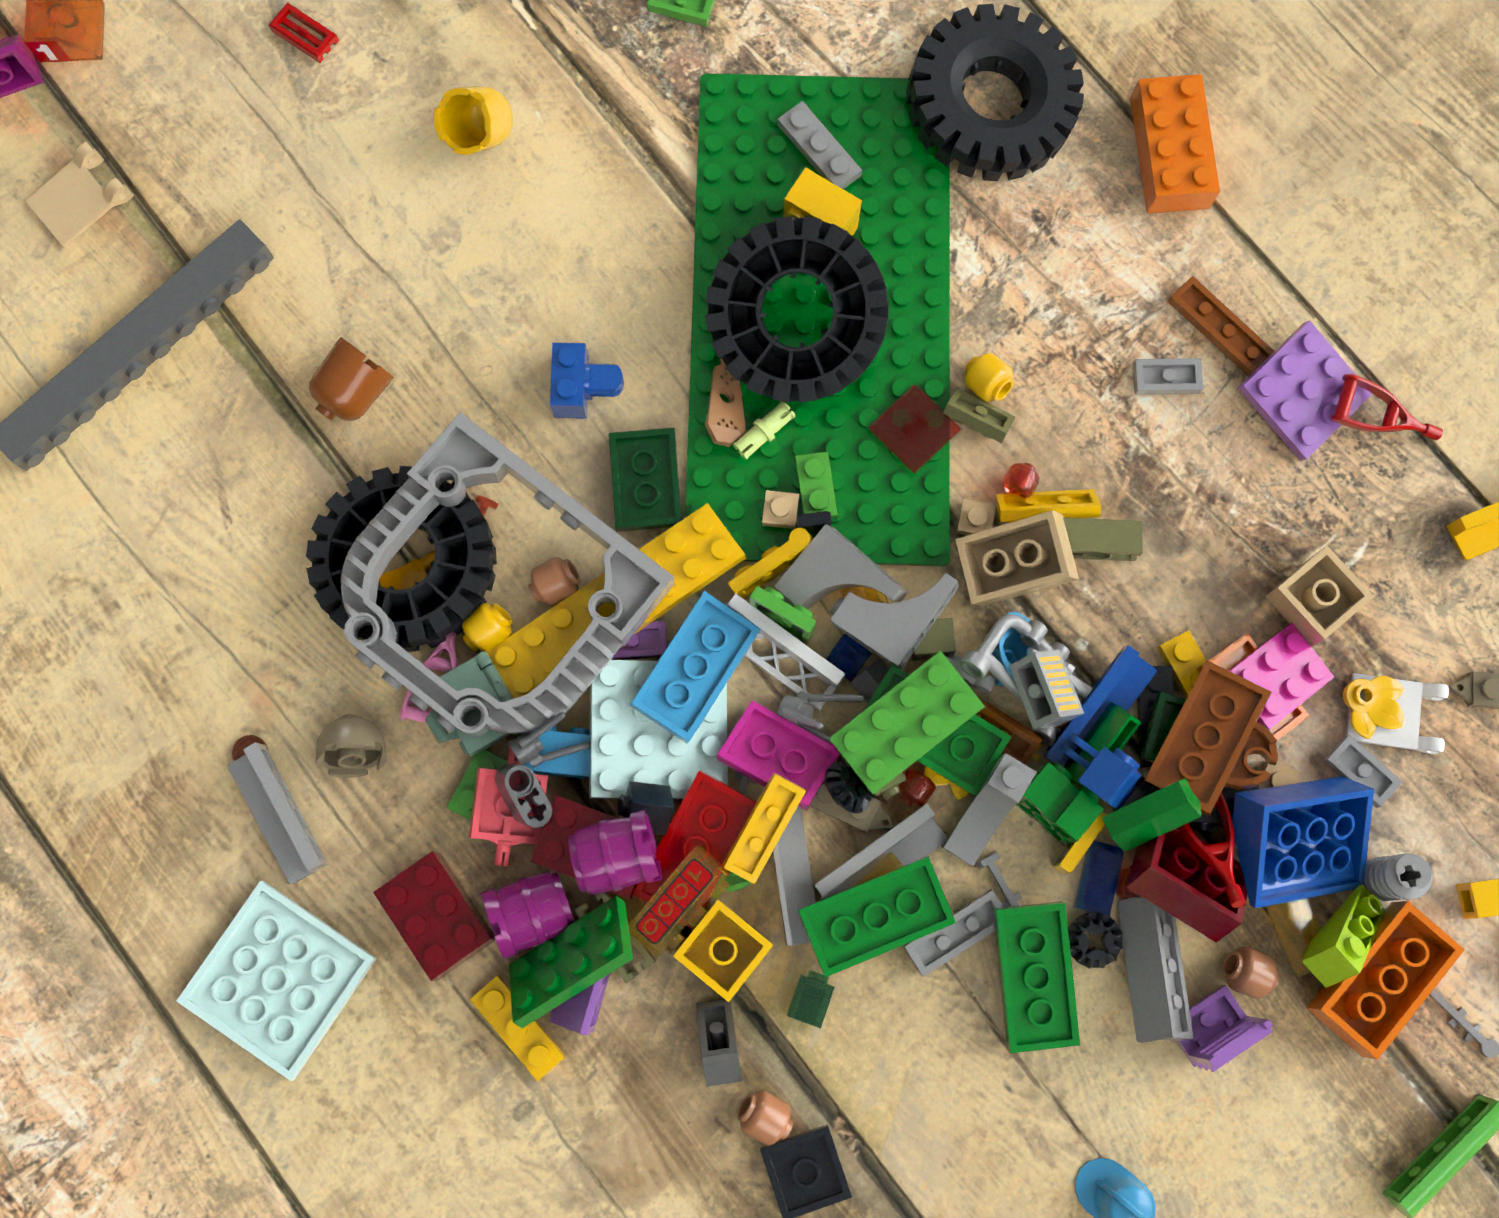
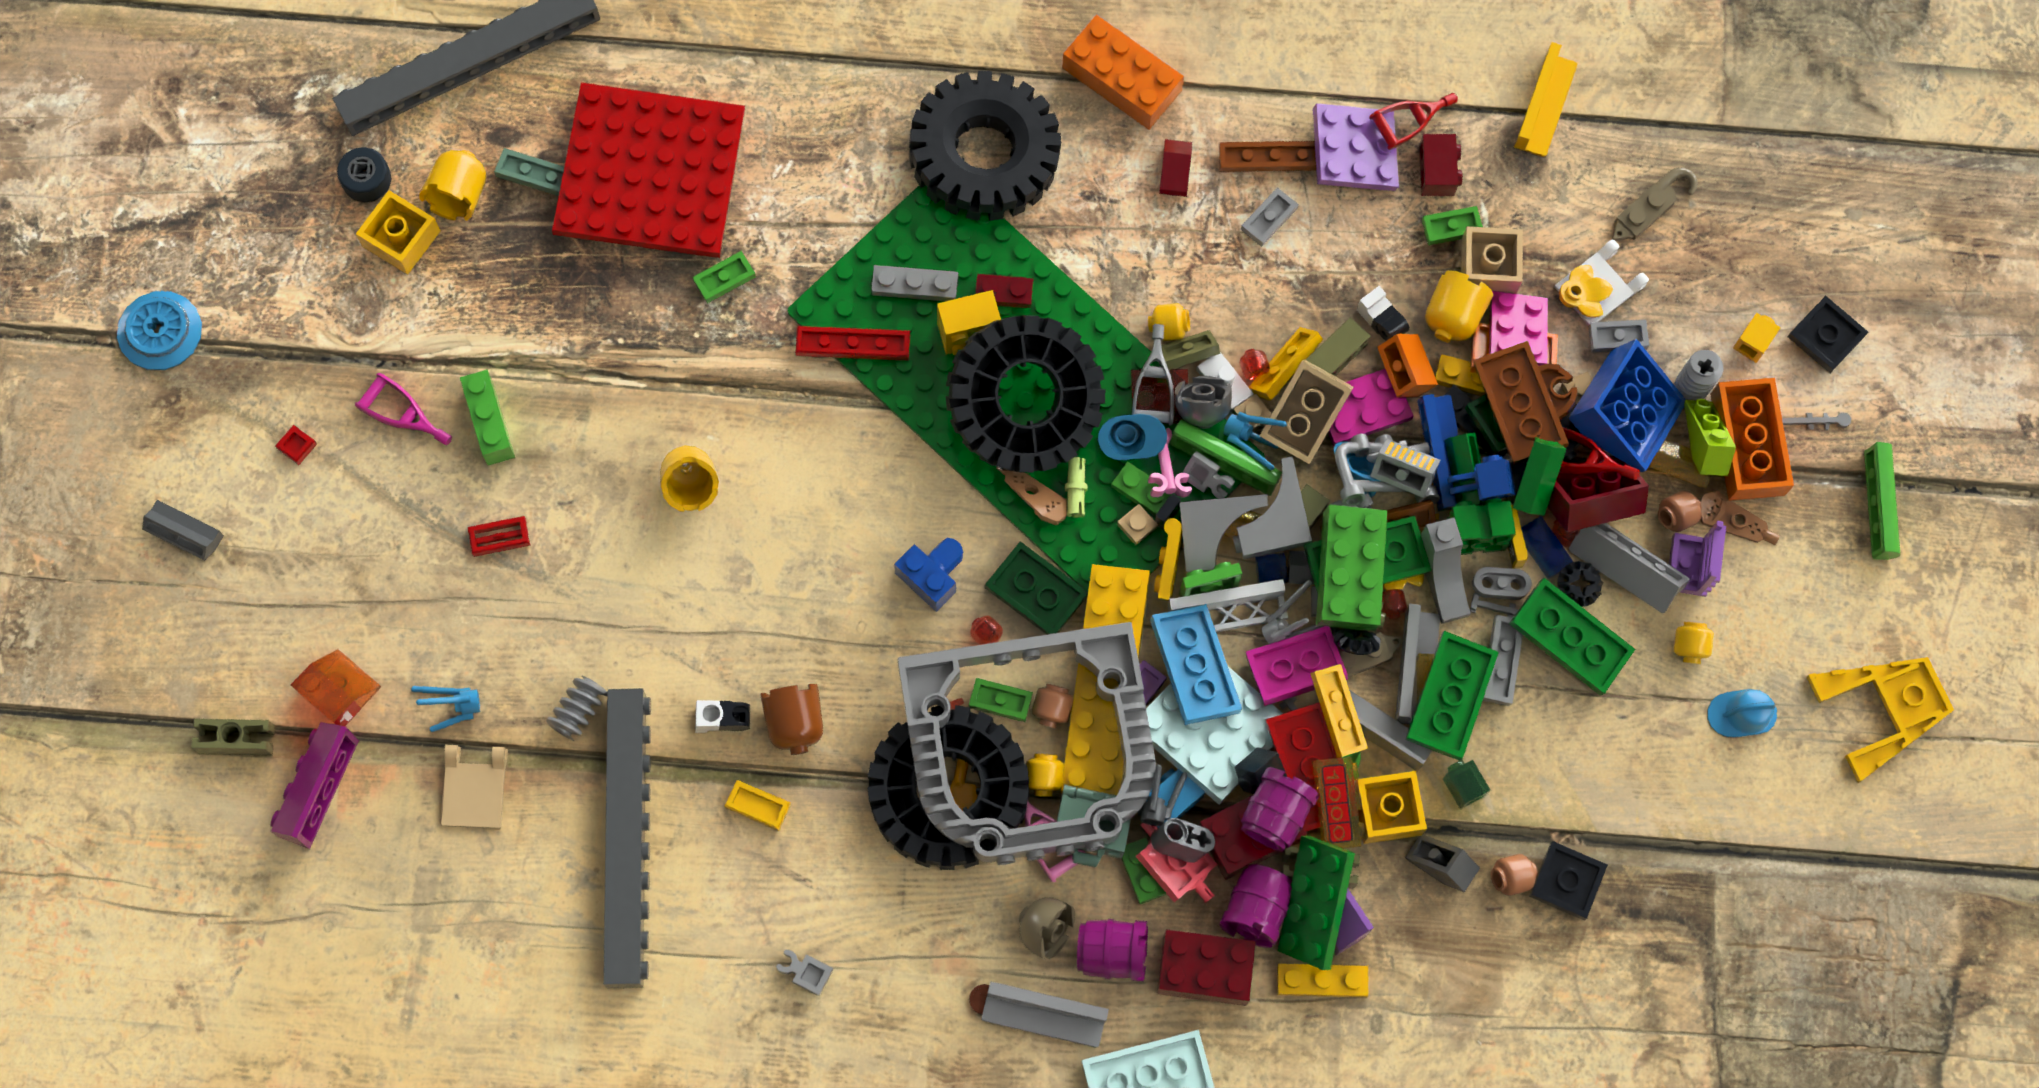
camera: 50 degrees left, 5 degrees down
(140, 128) = (464, 700): none -> dark azure plant
(145, 590) = (809, 974): none -> light grey plate
(208, 213) = (576, 707): none -> light grey piece
(256, 423) = (757, 805): none -> yellow tile
(302, 326) = (721, 716): none -> leg
(378, 821) = (1113, 949): none -> magenta piece
(521, 535) = (1000, 700): none -> bright green plate
(571, 471) = (986, 630): none -> clear red piece
(720, 146) = (852, 343): none -> red tile
(839, 501) = (1166, 479): none -> bright pink bar
(849, 433) = (1132, 437): none -> dark azure piece
(876, 523) = (1204, 474): none -> light grey plate
(884, 222) = (1007, 290): none -> dark red plate
(910, 527) = (1229, 458): none -> bright green brick
(928, 402) = (1156, 372): none -> light grey piece
(940, 465) = (1203, 401): none -> flat silver cylinder
(947, 517) = (1238, 429): none -> dark azure plant
(982, 470) = (1219, 367): none -> white tile
(1027, 868) = (1500, 583): none -> light grey plate
(1081, 612) = (1370, 408): none -> dark pink plate
(1132, 261) = (1175, 168): none -> dark red slope
(1138, 1094) = (1693, 642): none -> yellow head
(1147, 609) = (1407, 365): none -> orange brick
(1173, 548) = (1382, 315): none -> leg
(1244, 604) = (1457, 307): none -> yellow cylinder
(1287, 1018) = (1726, 513): none -> medium nougat piece
(1316, 532) = (1450, 225): none -> bright green plate
(1362, 475) = (1439, 165): none -> dark red brick

